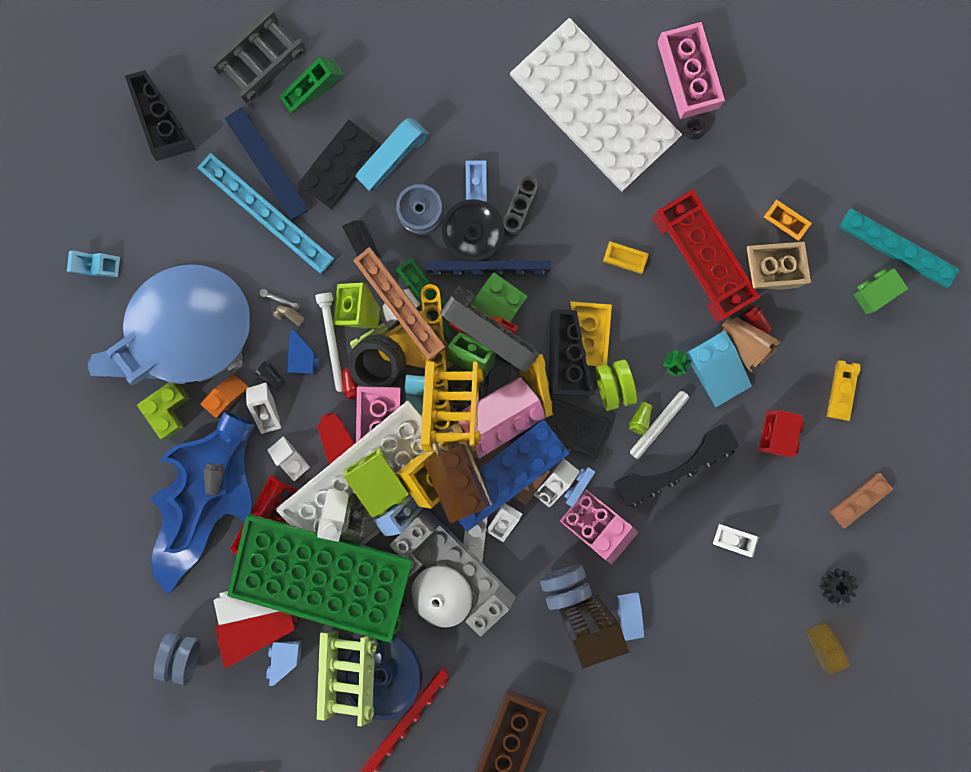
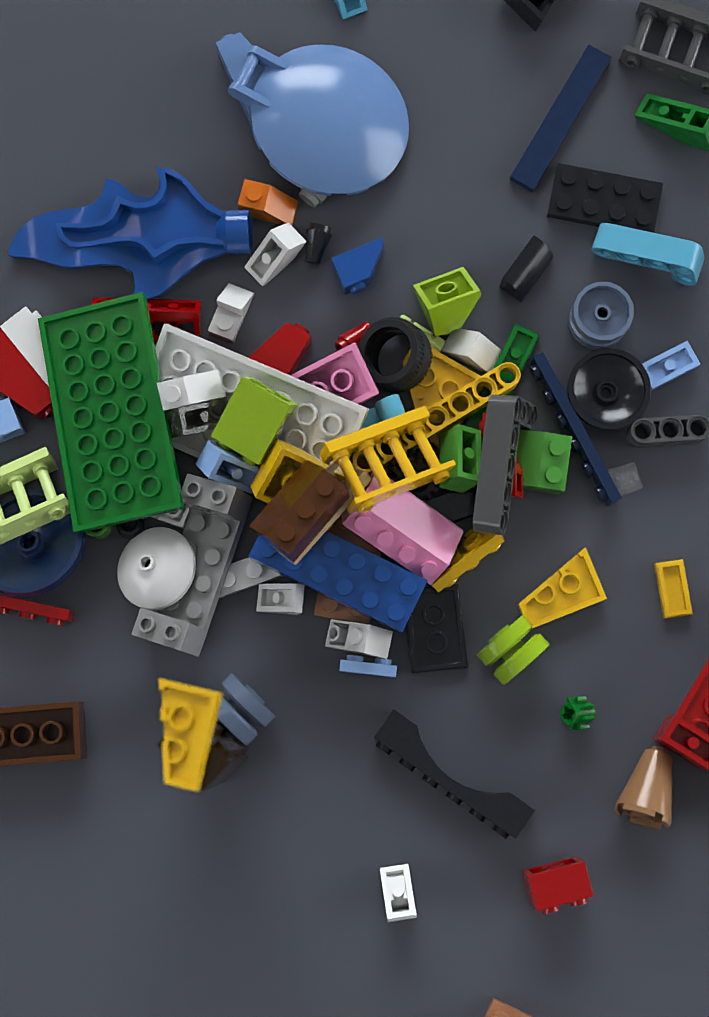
camera: 65 degrees right, 5 degrees down
(160, 409) = (216, 139): lime brick -> none
(213, 477) = (167, 234): dark grey cone -> none
(264, 293) = (409, 190): light grey hinge -> none
(266, 213) = (502, 146): medium azure tile -> none
(290, 313) = (401, 228): dark tan arm -> none
(325, 301) = (435, 262): white piece -> none
(399, 304) = (477, 344): nougat plate -> none
(537, 250) = (626, 478): none -> clear tile
(567, 357) = (508, 581): black wedge -> none
(582, 641) = (189, 725): none -> yellow wing
(599, 526) = (331, 717): bright pink slope -> none
(631, 616) = (242, 808): light blue slope -> none
(641, 419) = (485, 704): lime cone -> none
(659, 424) = (492, 730): white axle -> none
(719, 368) = (598, 769): medium azure slope -> none
(756, 317) = (683, 786): red cone -> none
(843, 391) = (650, 940): yellow plate -> none

